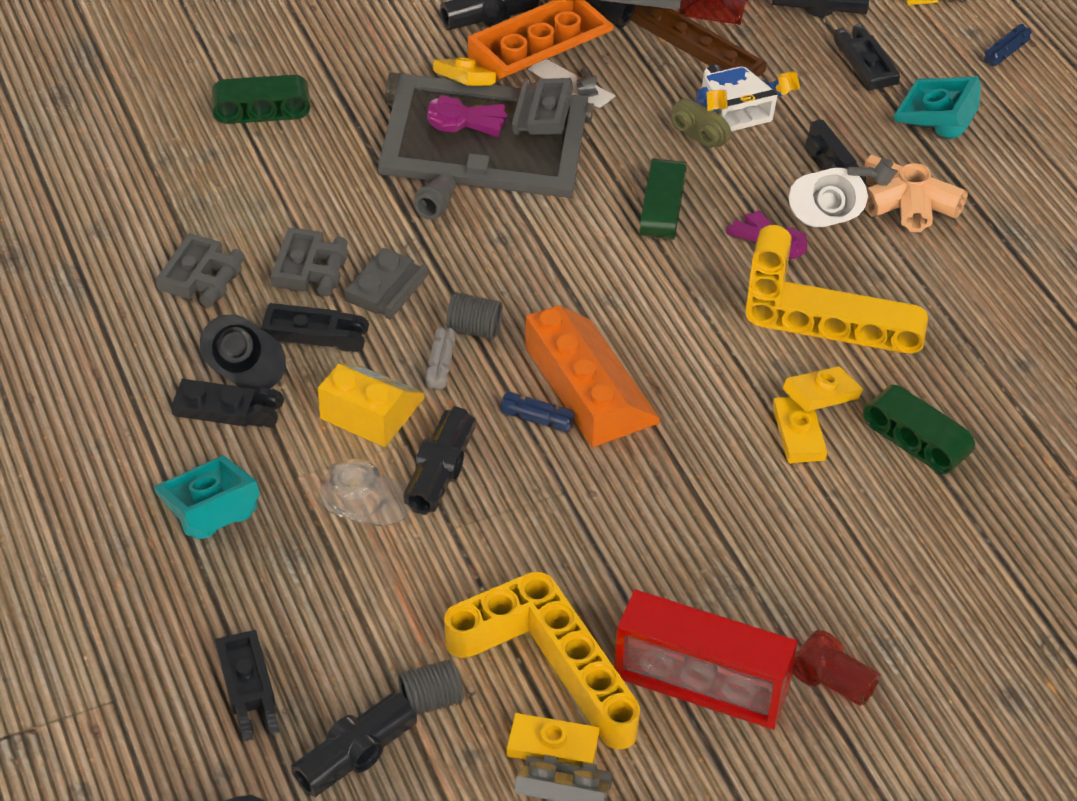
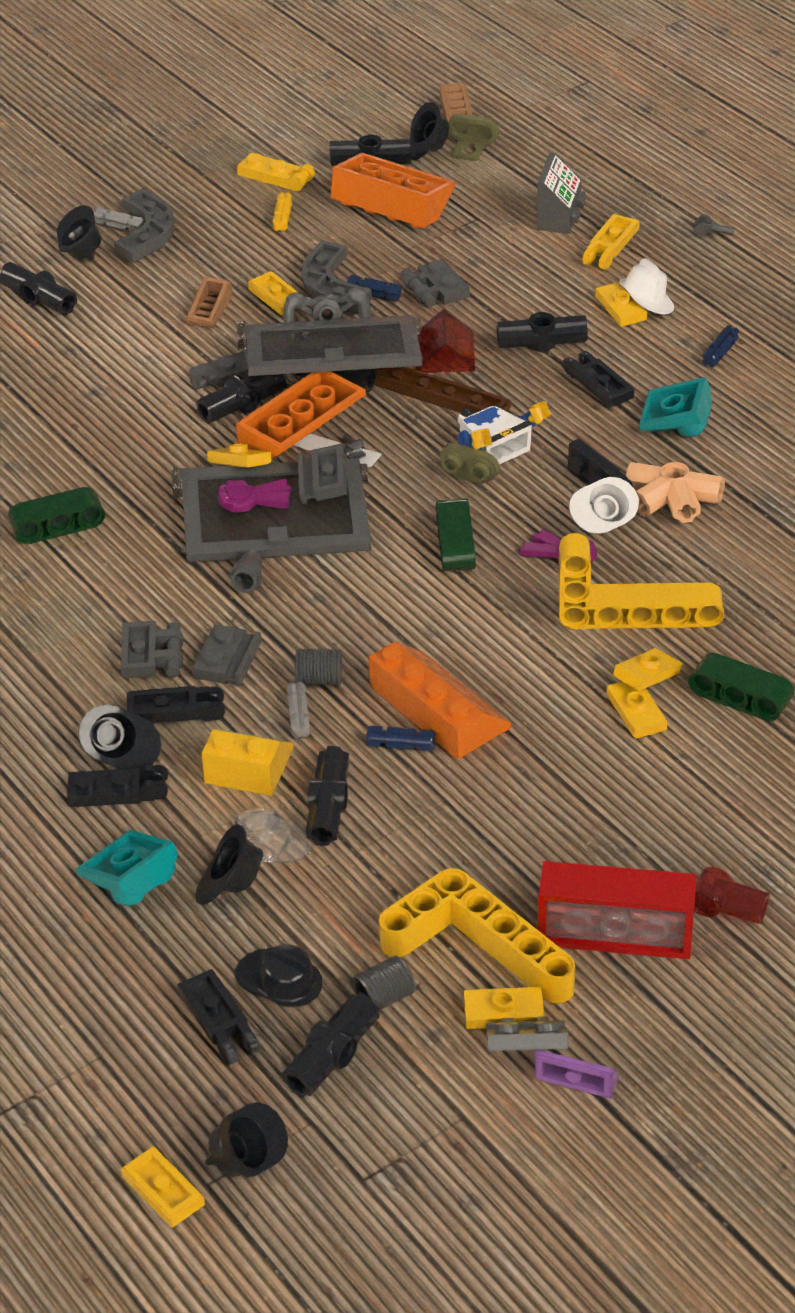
camera: 10 degrees left, 5 degrees down
(191, 264) = (42, 675): dark grey plate -> none
(315, 519) = (232, 866): none -> black piece
(328, 652) = (280, 975): none -> black piece
(881, 173) = (646, 475): dark grey hand -> none

